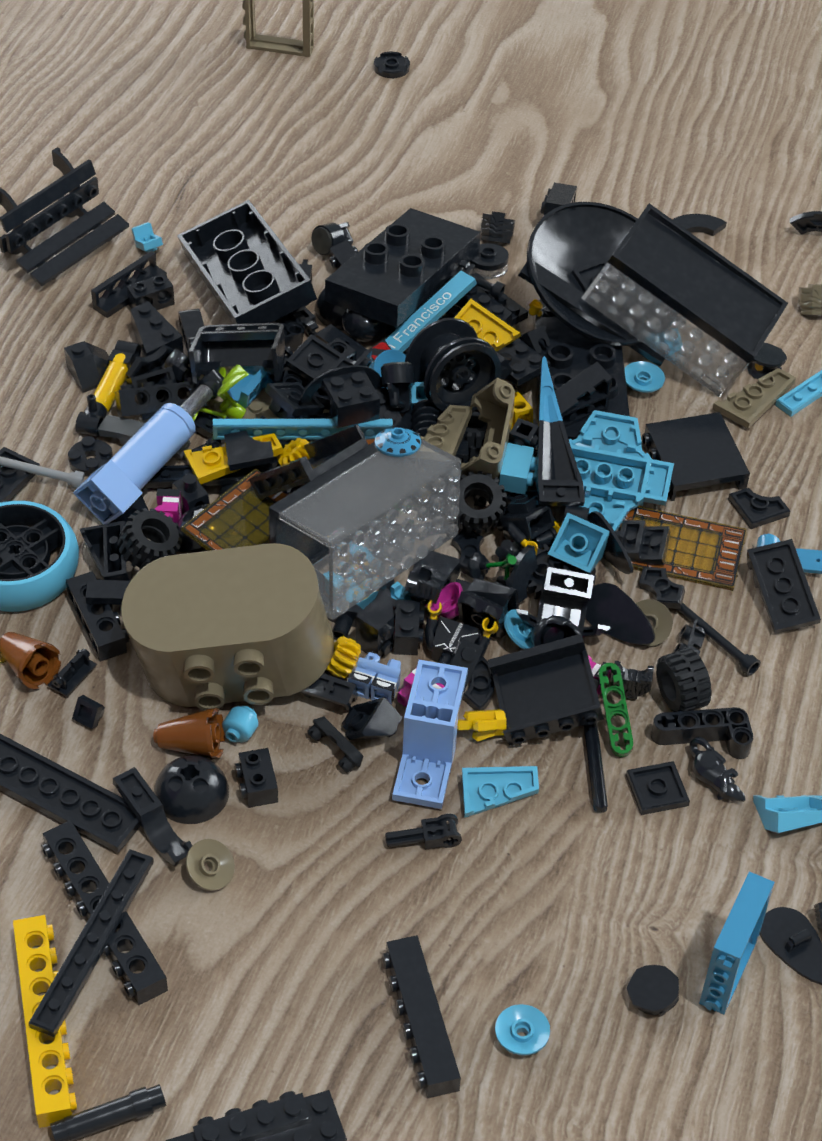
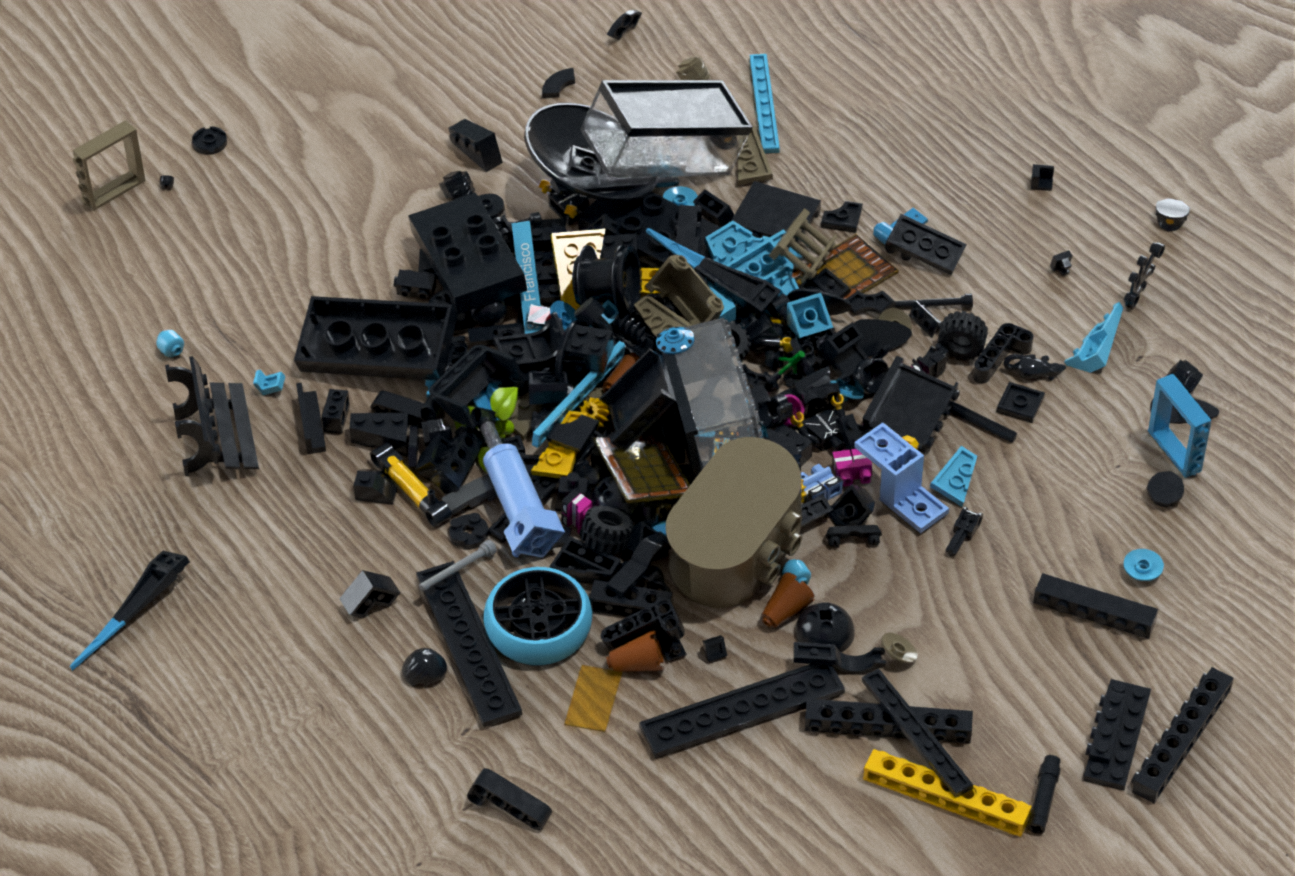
camera: 50 degrees left, 0 degrees up
(73, 641) = (621, 632): none -> black beam
(134, 160) = (170, 343): none -> medium azure head
(258, 777) = (848, 588): black brick -> none
(316, 66) = (166, 180): none -> black hinge
(329, 235) = (379, 279): piece -> none
(615, 709) = (953, 378): green beam -> none
(653, 402) = (714, 208): none -> black brick
(676, 470) = (788, 241): none -> dark tan fence

